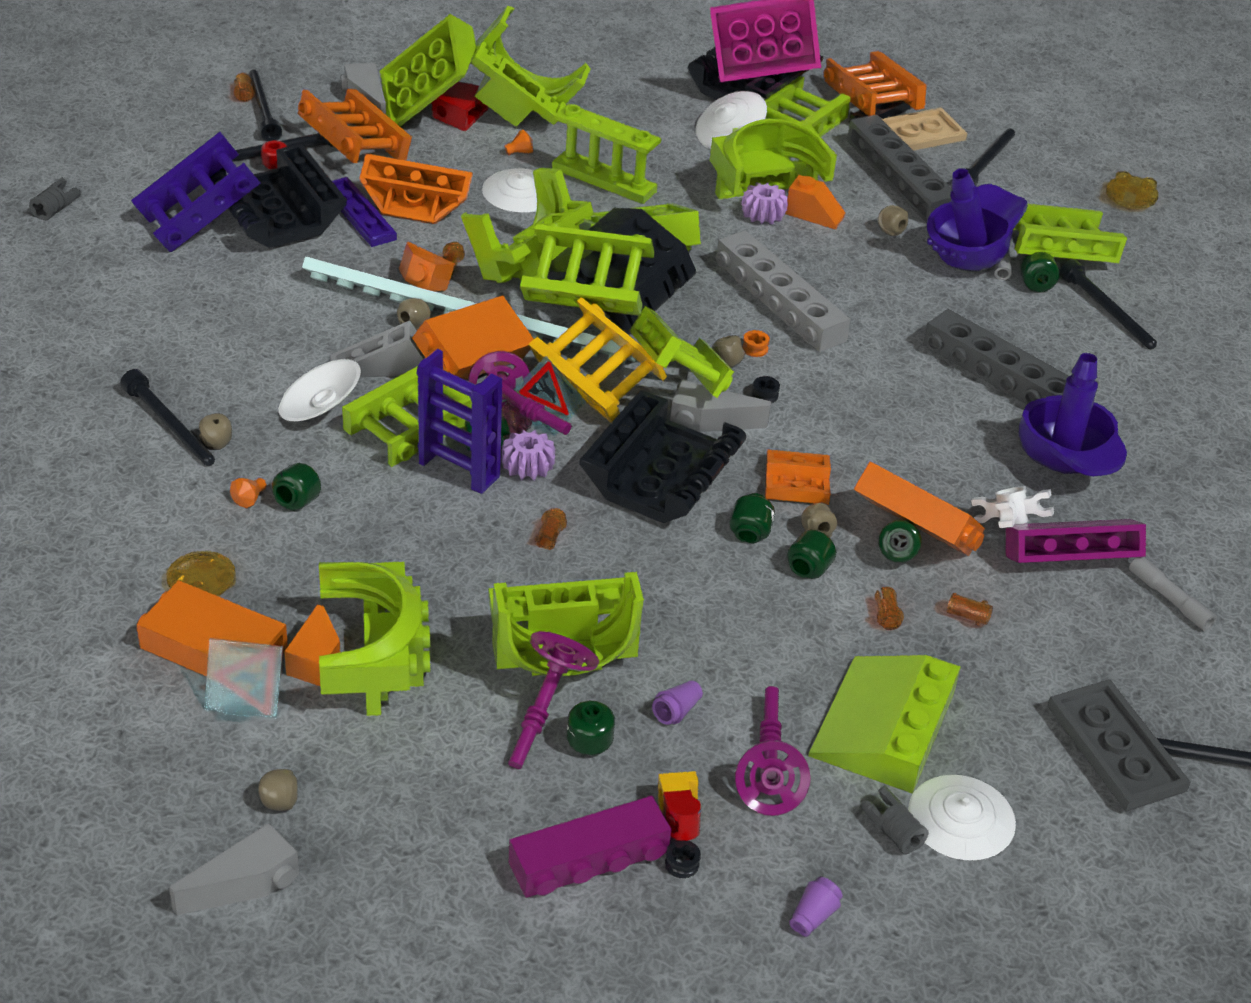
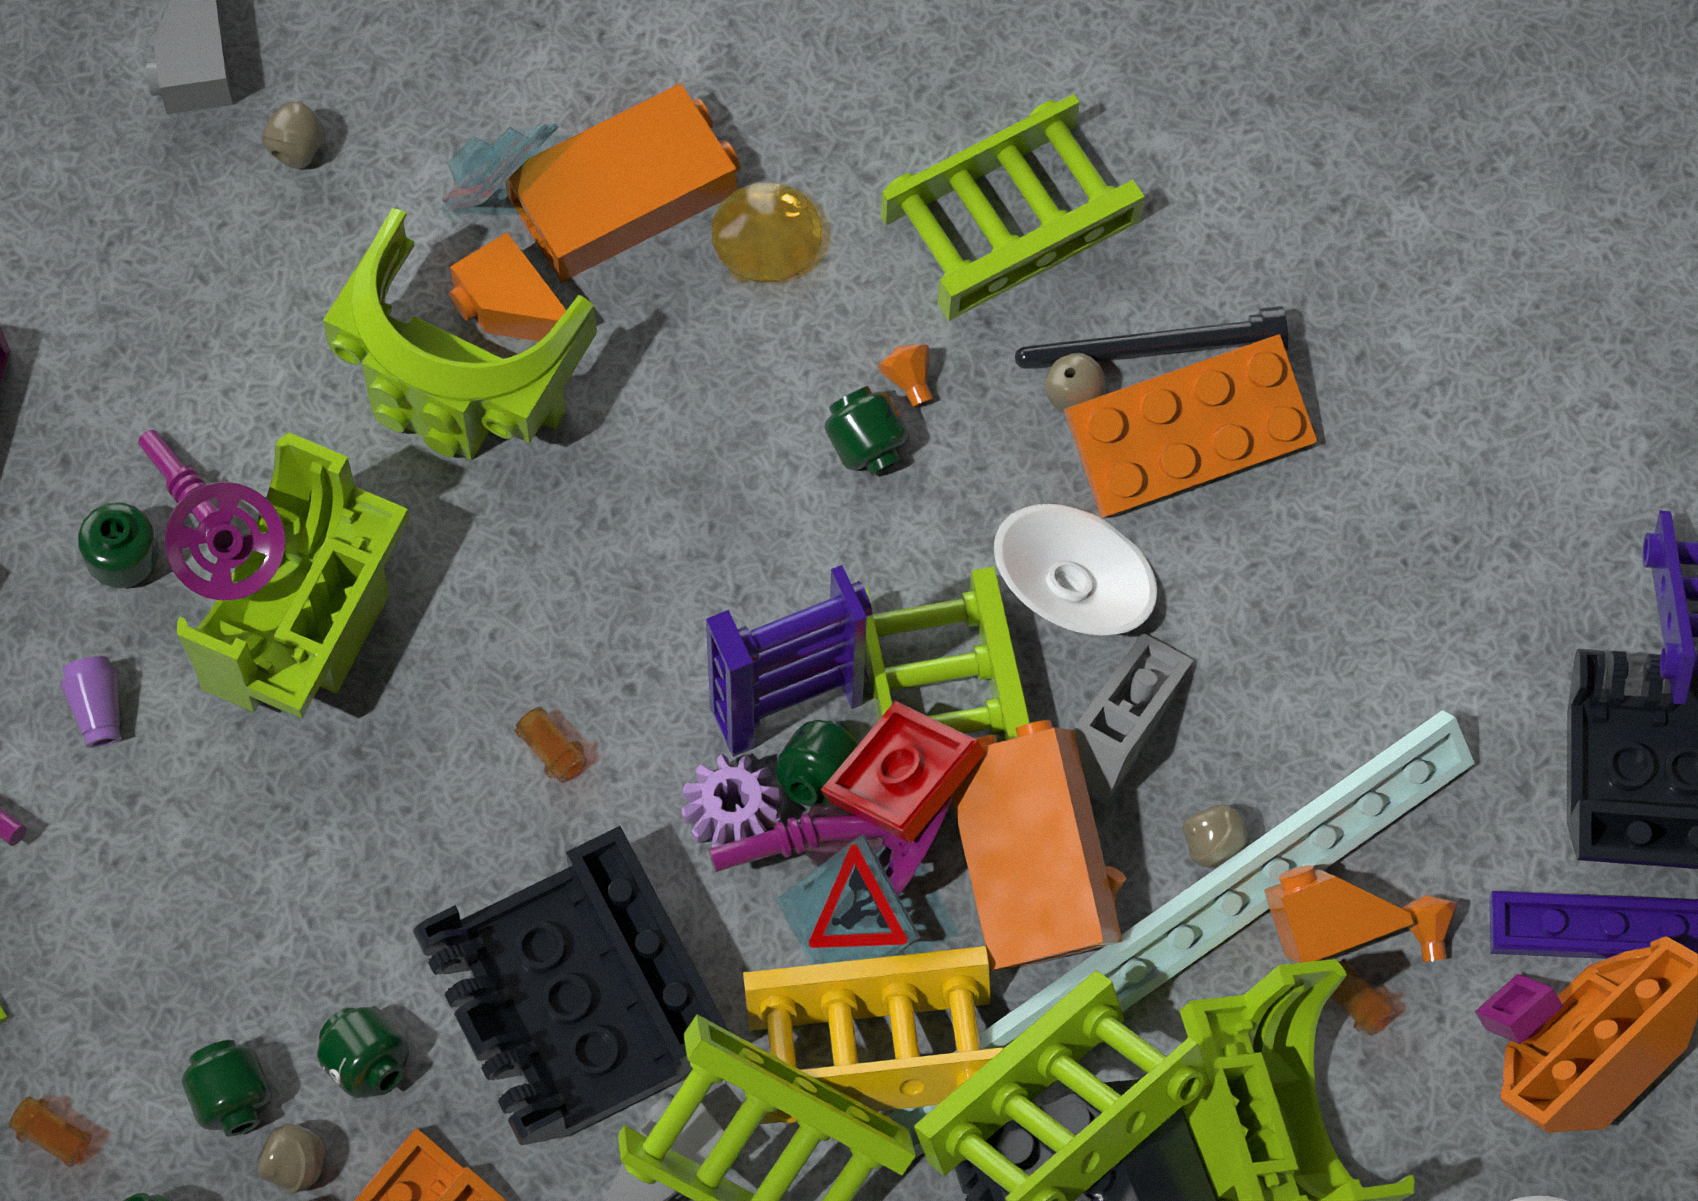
camera: 125 degrees right, 25 degrees up
(125, 462) = (1012, 257): none -> lime fence
(211, 385) = (1190, 425): none -> orange plate
(395, 249) = (1431, 924): none -> orange rock
(418, 215) = (1519, 1009): none -> magenta plate
(475, 365) = (903, 771): none -> red tile

